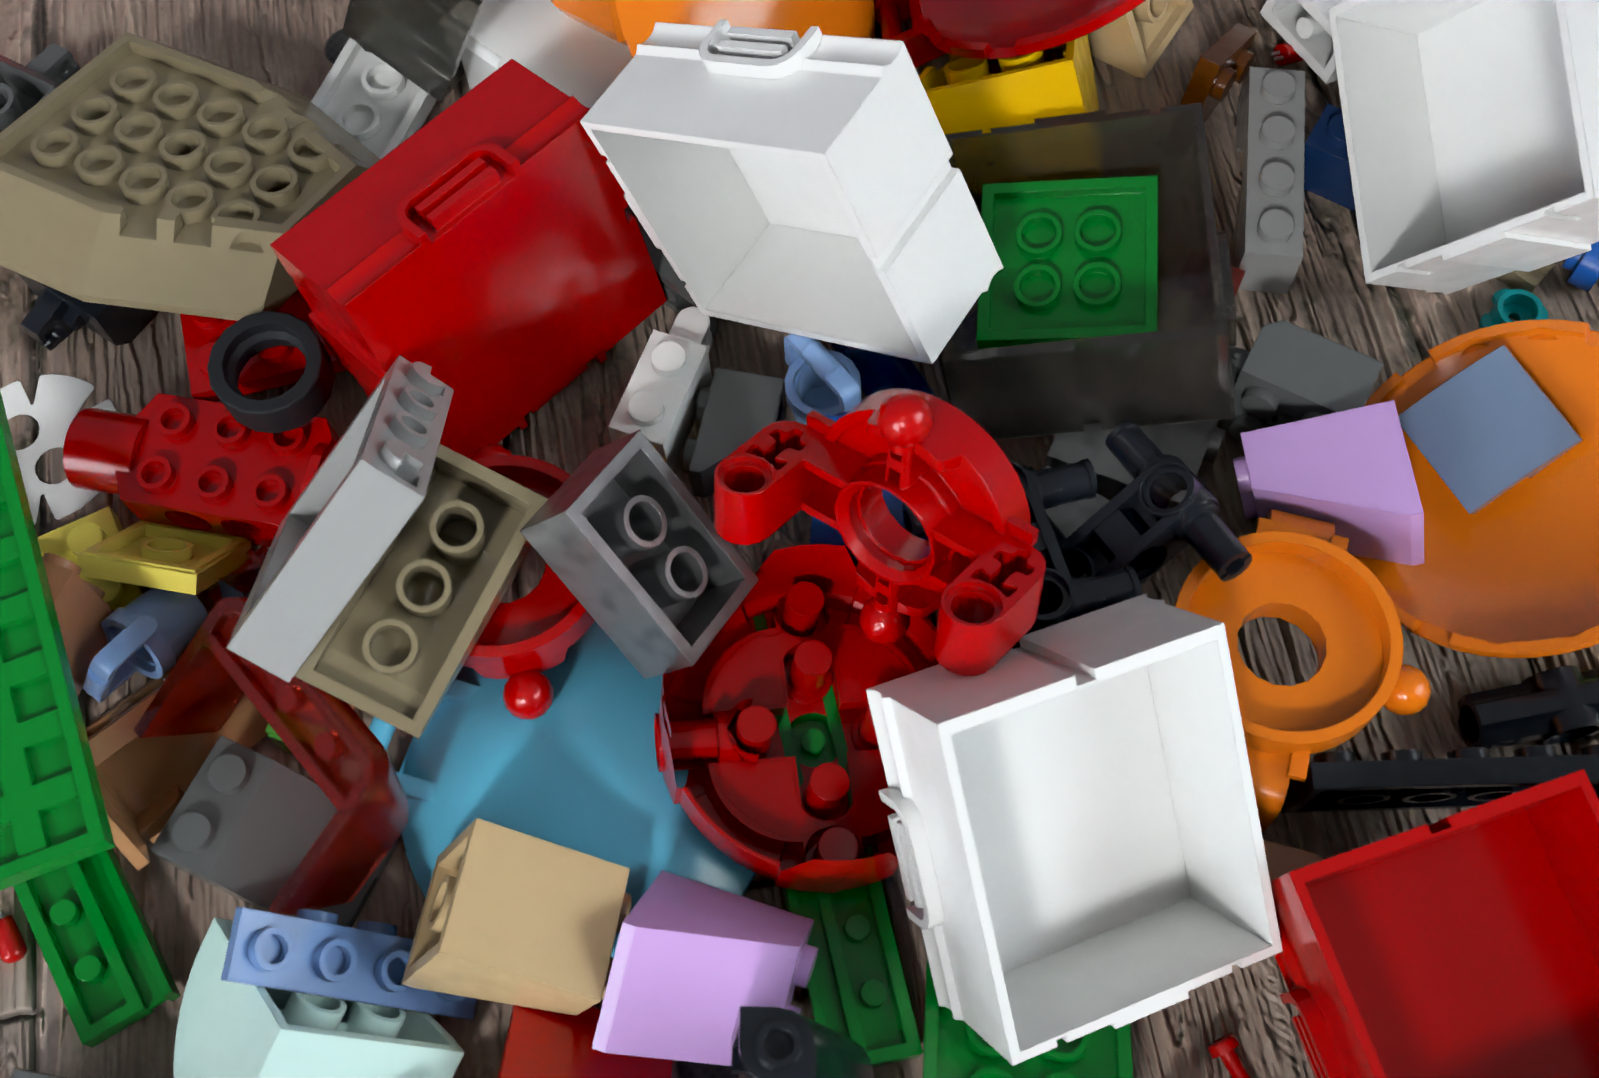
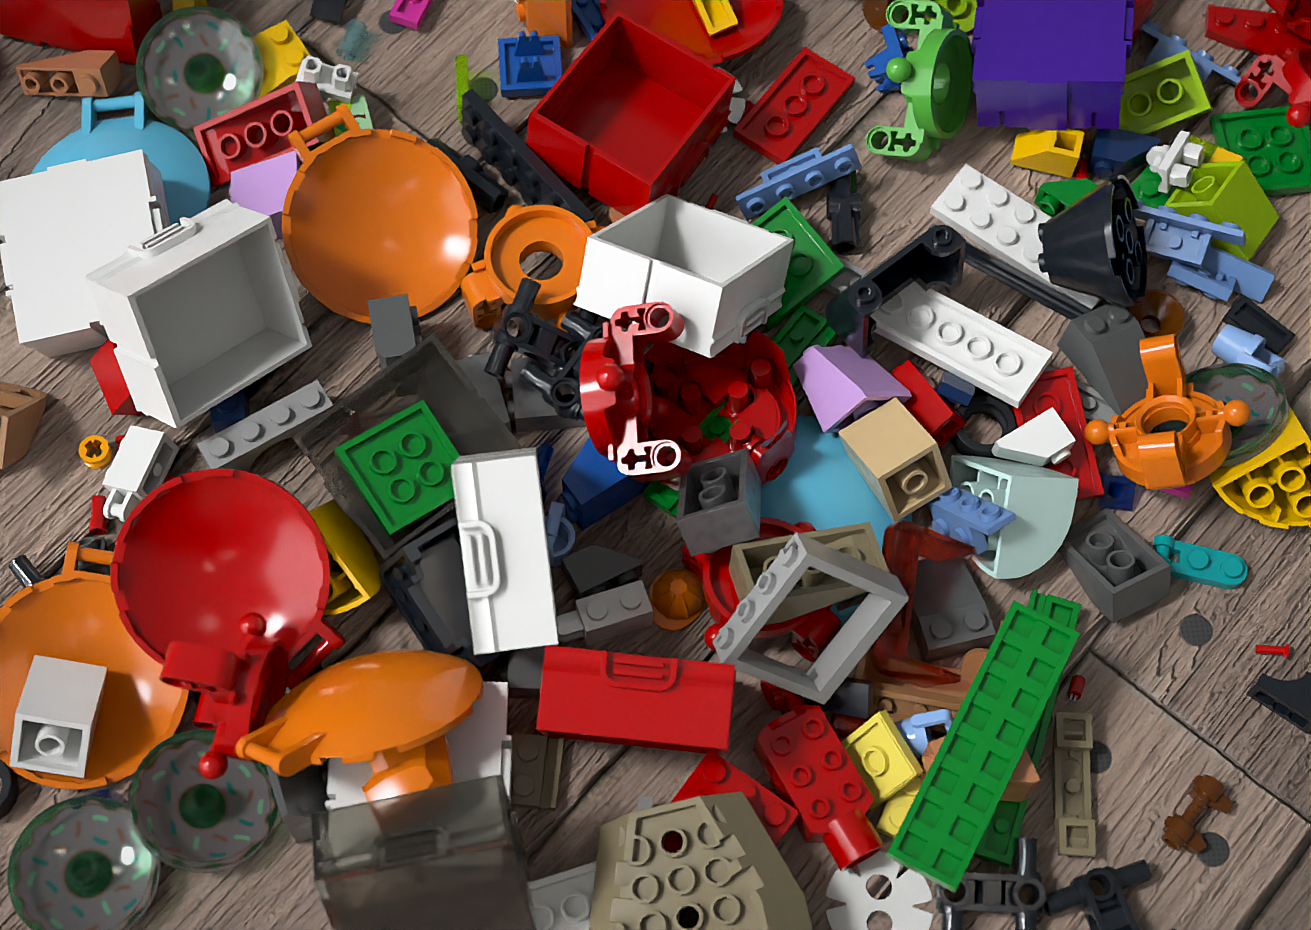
camera: 135 degrees left, 0 degrees up
(247, 339) = (771, 738): black tyre -> none
(1339, 471) = (438, 292): lavender slope -> none
(1488, 429) = (356, 257): sand blue slope -> none

